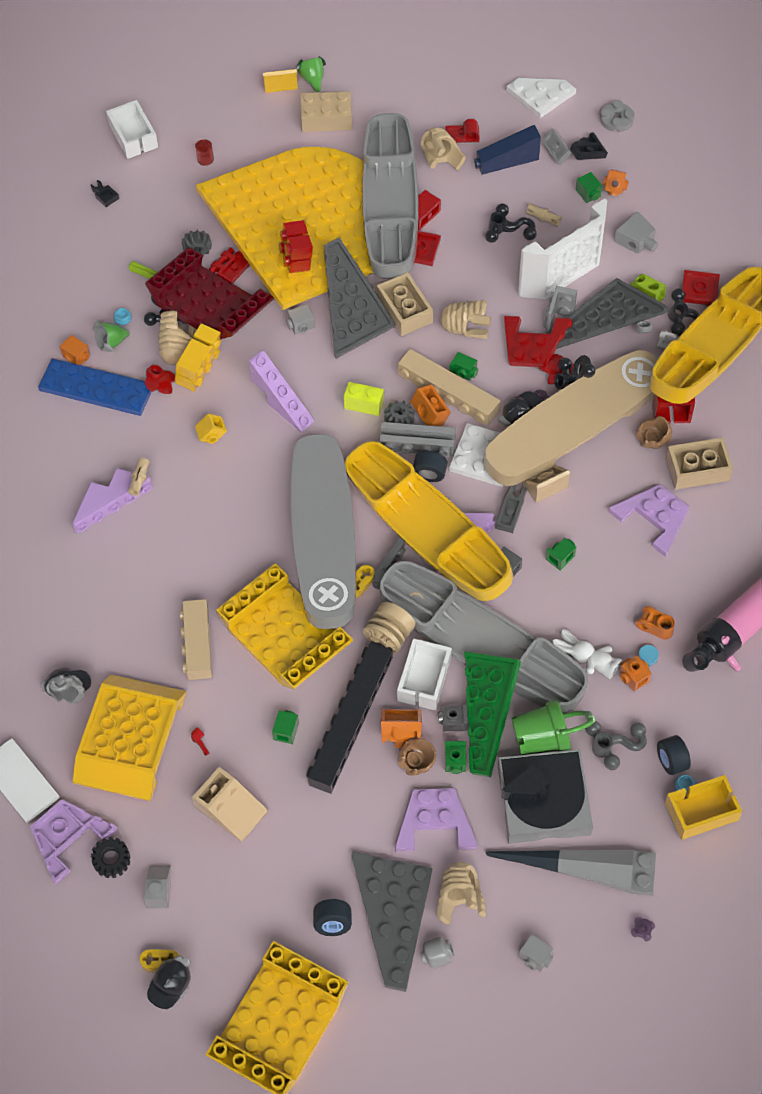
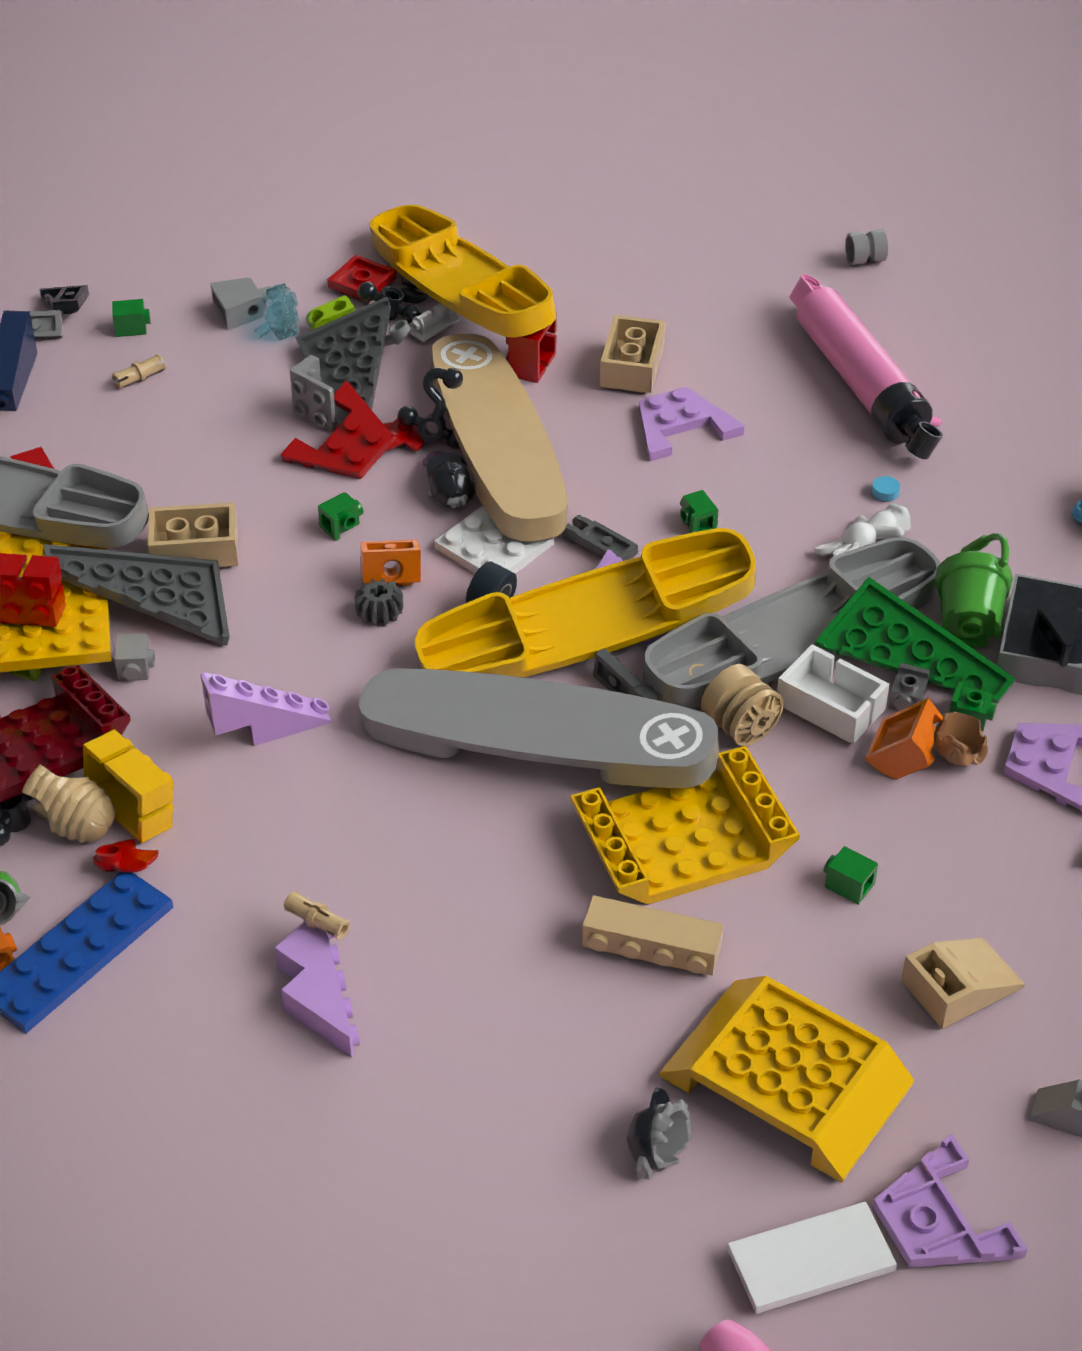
camera: 70 degrees left, 15 degrees down
(113, 869) = (995, 1177): black tyre -> none
(196, 736) = (821, 993): red hand -> none
(210, 428) = (271, 814): yellow brick -> none
(350, 717) = (865, 798): black brick -> none
(363, 398) = (327, 628): neon yellow brick -> none
(417, 438) = (431, 593): light grey brick -> none
(449, 386) = (339, 547): tan brick -> none
(456, 315) = (261, 483): tan hair -> none
(499, 224) = (124, 411): black piece -> none
(547, 483) = (582, 489): tan slope -> none
(564, 260) = (244, 341): white slope -> none
(612, 761) = (1032, 562): dark grey piece -> none
(619, 109) = (30, 263): light grey plate -> none
(620, 177) = (144, 286): orange brick -> none
(635, 260) = (281, 313): none -> clear light blue brick
(635, 673) = (917, 497): orange brick -> none
(652, 622) = (845, 462): orange piece -> none
(654, 433) = (562, 376): medium nougat hair -> none
(673, 755) = (1047, 502): black wheel -> none

